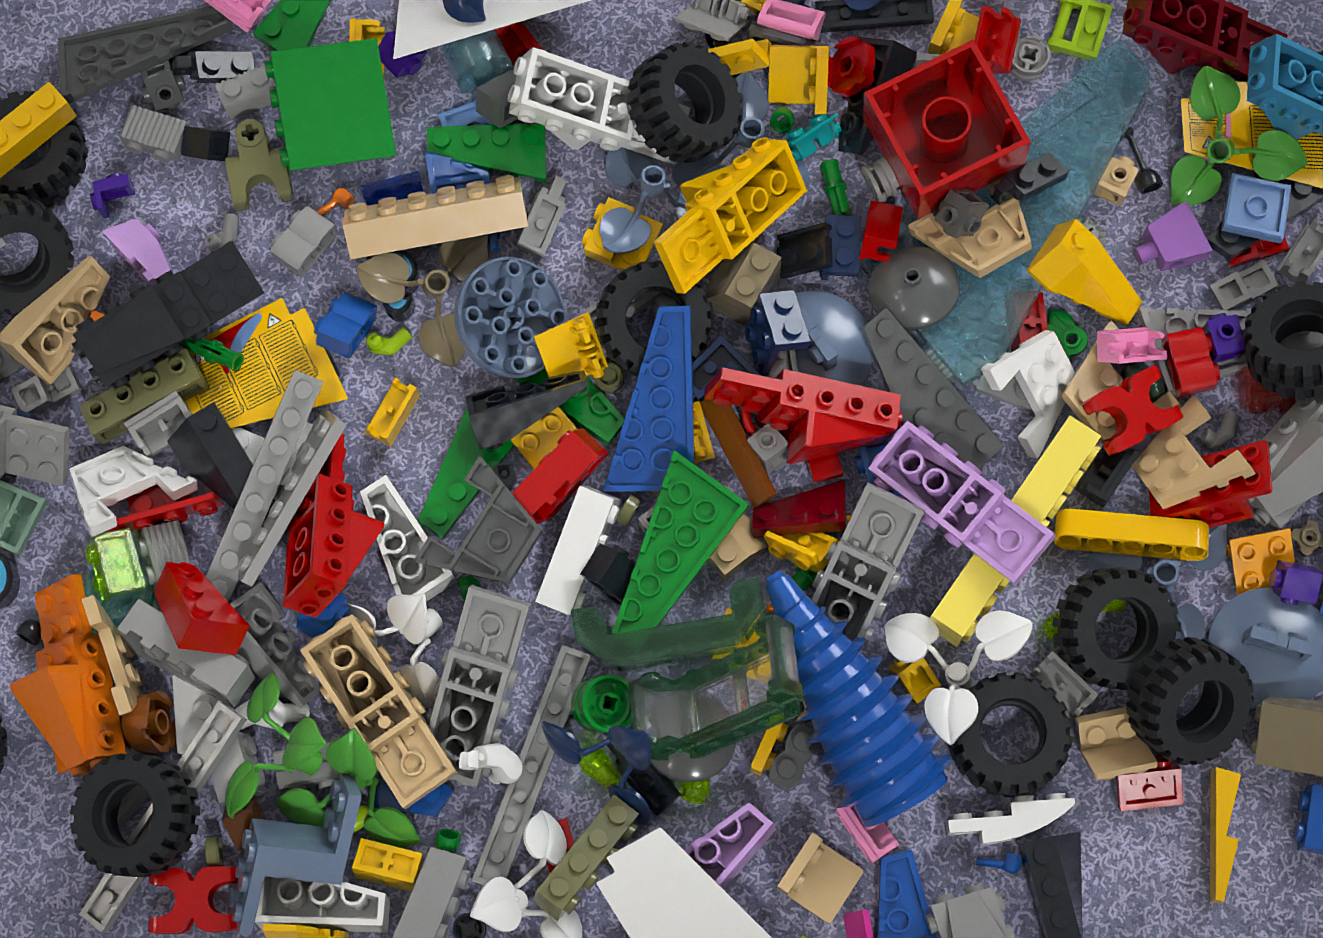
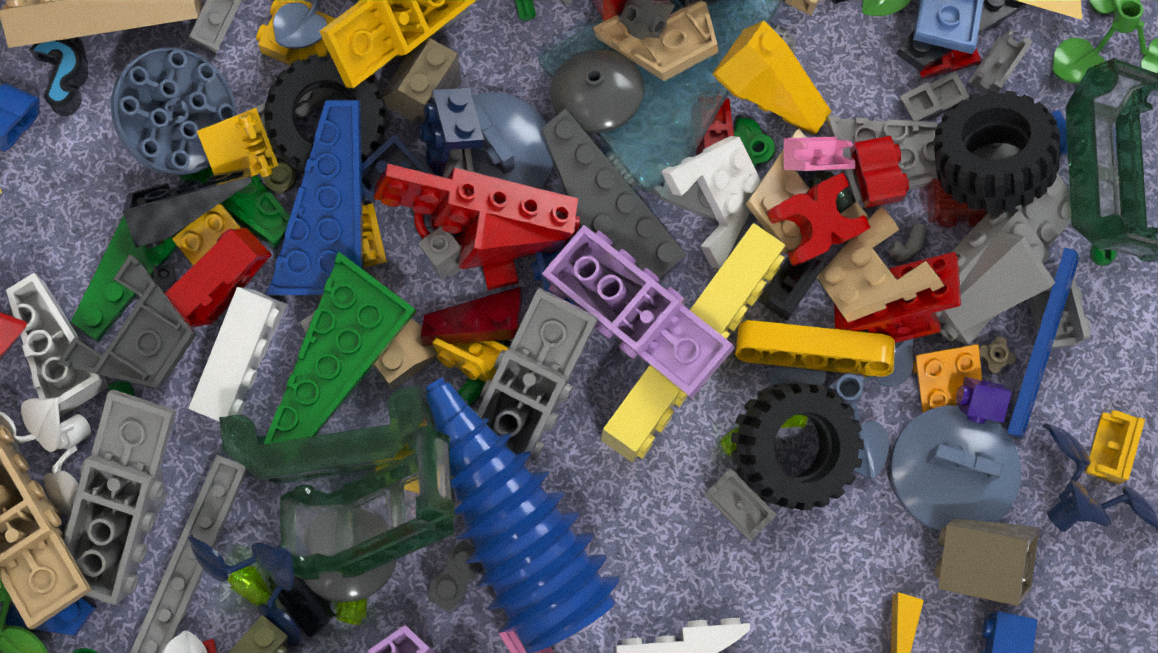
camera: 10 degrees left, 0 degrees up
(386, 278) = (48, 67): dark tan plant -> none
(388, 346) = (49, 140): lime arm -> none
(392, 412) = (51, 209): yellow hinge -> none
(492, 238) = (164, 30): blue hand -> none
(504, 763) = (140, 576): white arm -> none
(590, 696) = (241, 510): green wheel -> none
(609, 571) = (266, 376): black brick -> none
(628, 510) = (293, 314): olive tile -> none
(739, 453) = (411, 257): dark orange tile -> none
(764, 755) = (439, 550): yellow hinge -> none
(805, 250) = (486, 51): black plate -> none
(845, 245) = (523, 47): dark blue bracket -> none
(880, 230) = (564, 31): red hinge -> none
(915, 678) = (586, 491): yellow bracket -> none
(955, 709) = (626, 528): white plant -> none
(1053, 736) = (719, 527): black tyre -> none
(1112, 745) = (792, 566): tan bracket -> none
(1151, 788) = (827, 608): bracket -> none
(1174, 240) = (864, 50): medium lavender torso -> none
(1213, 721) = (896, 543): black tyre -> none
(1225, 337) = (915, 147): dark purple brick -> none

